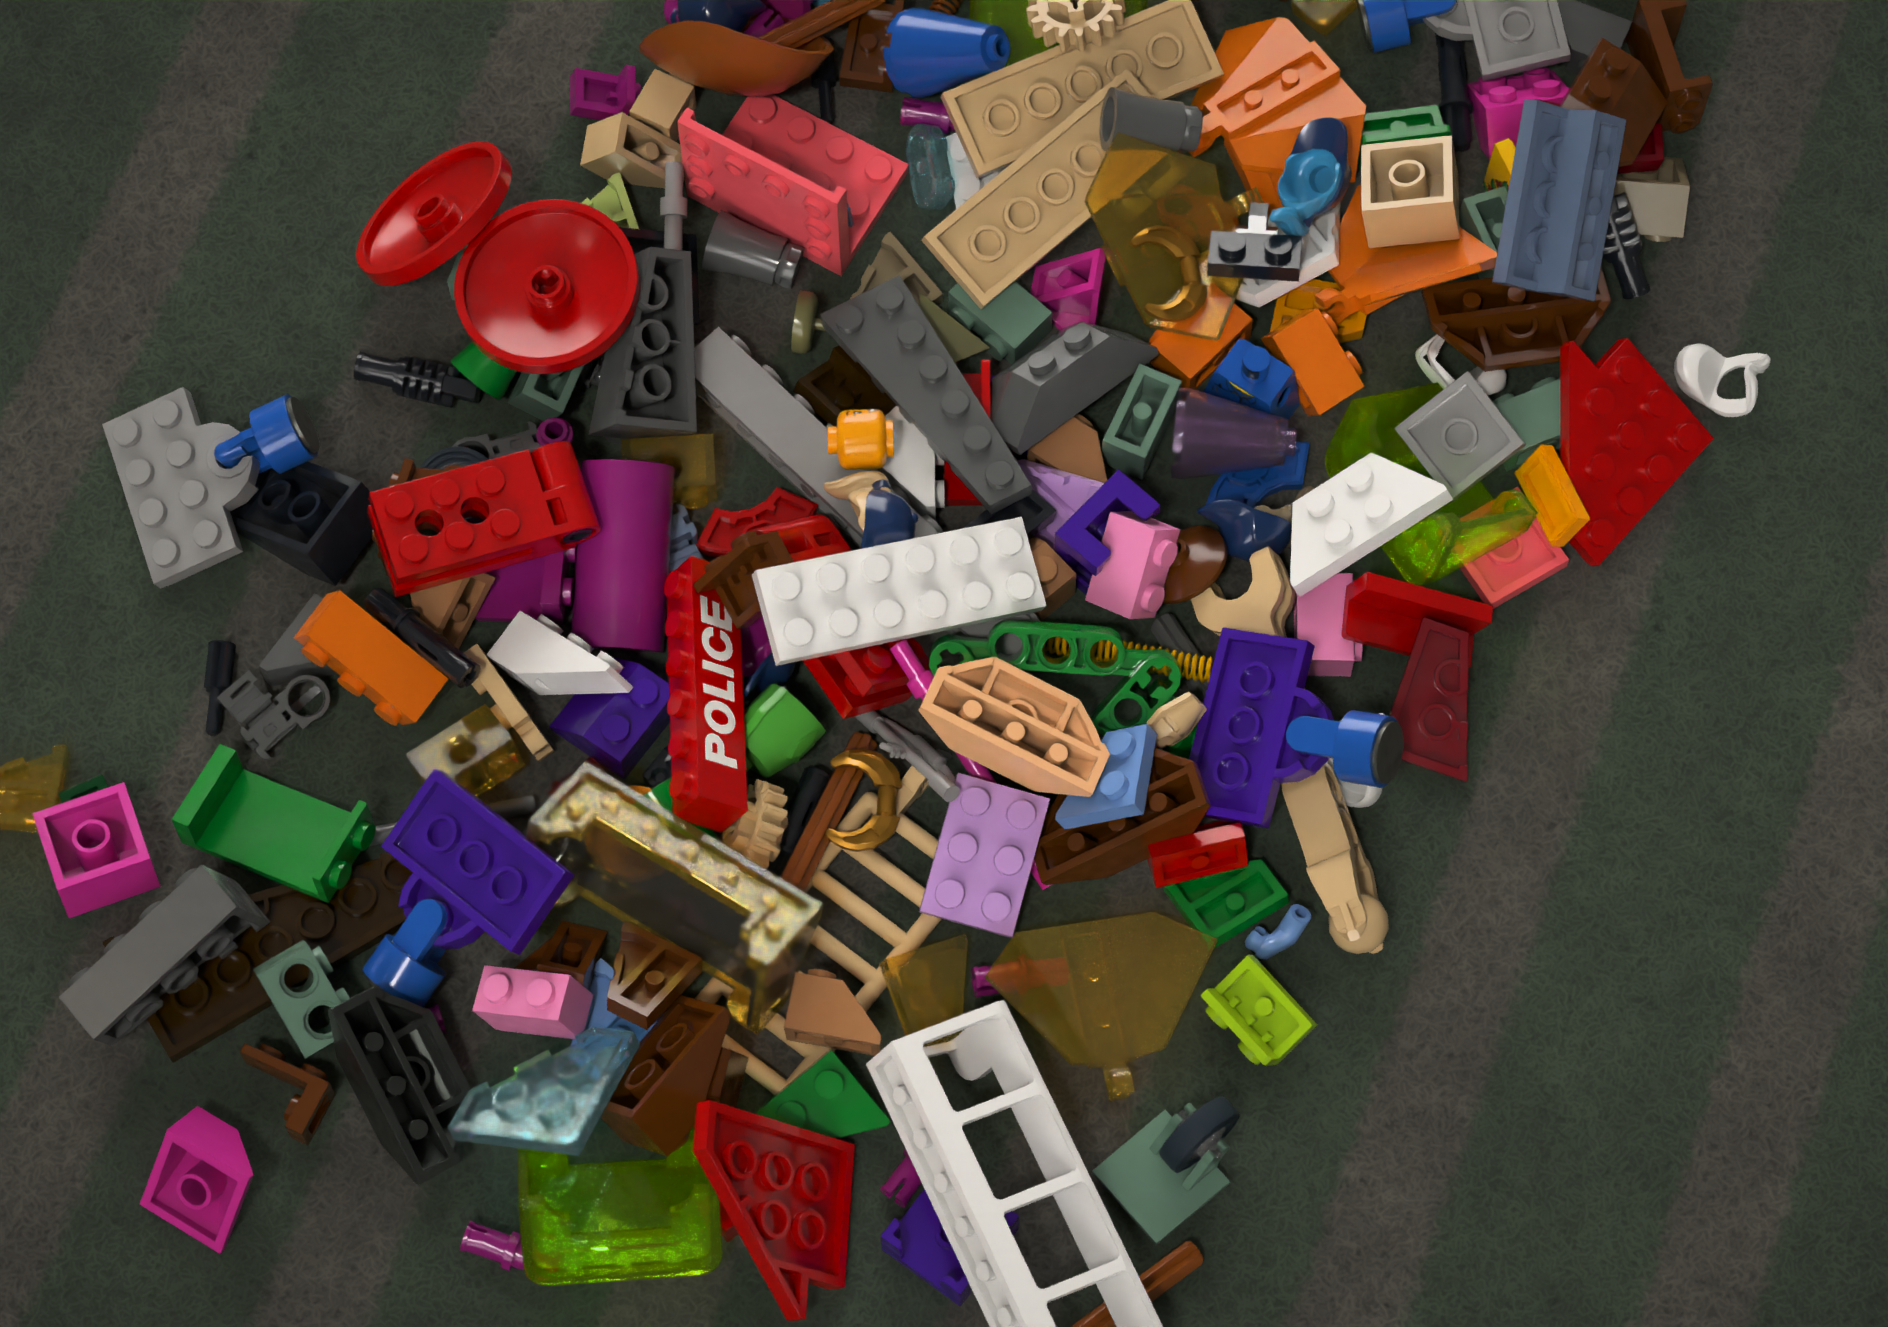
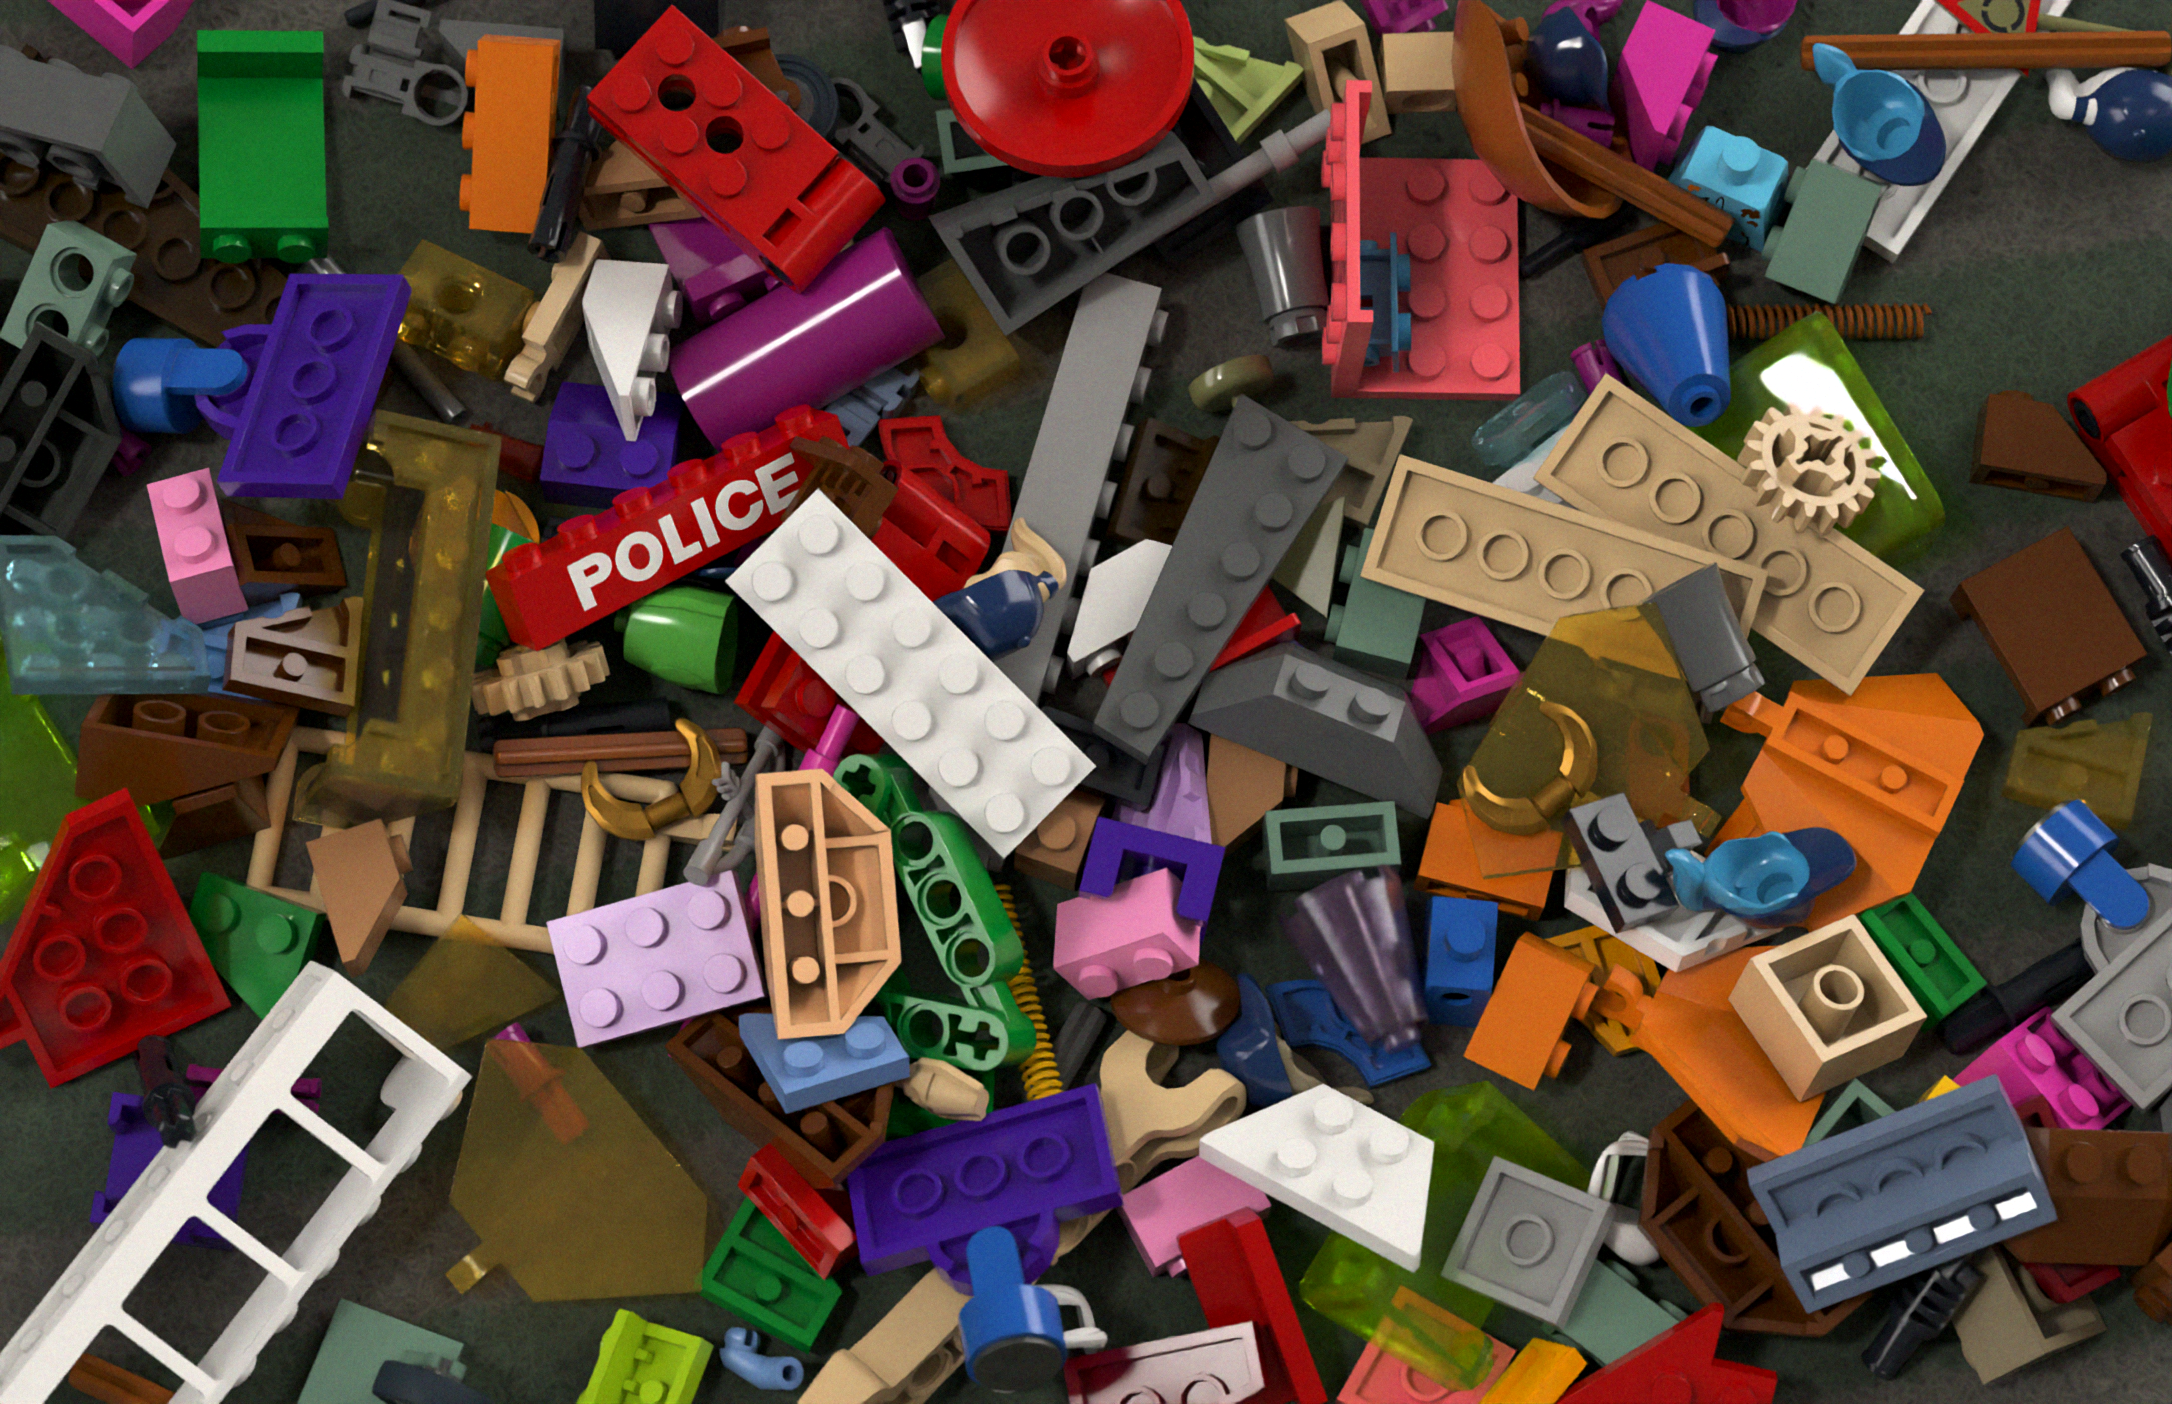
camera: 55 degrees right, 5 degrees up
(861, 439) = (1097, 528): light orange head -> none
(913, 1198) = (167, 1100): none -> black axle

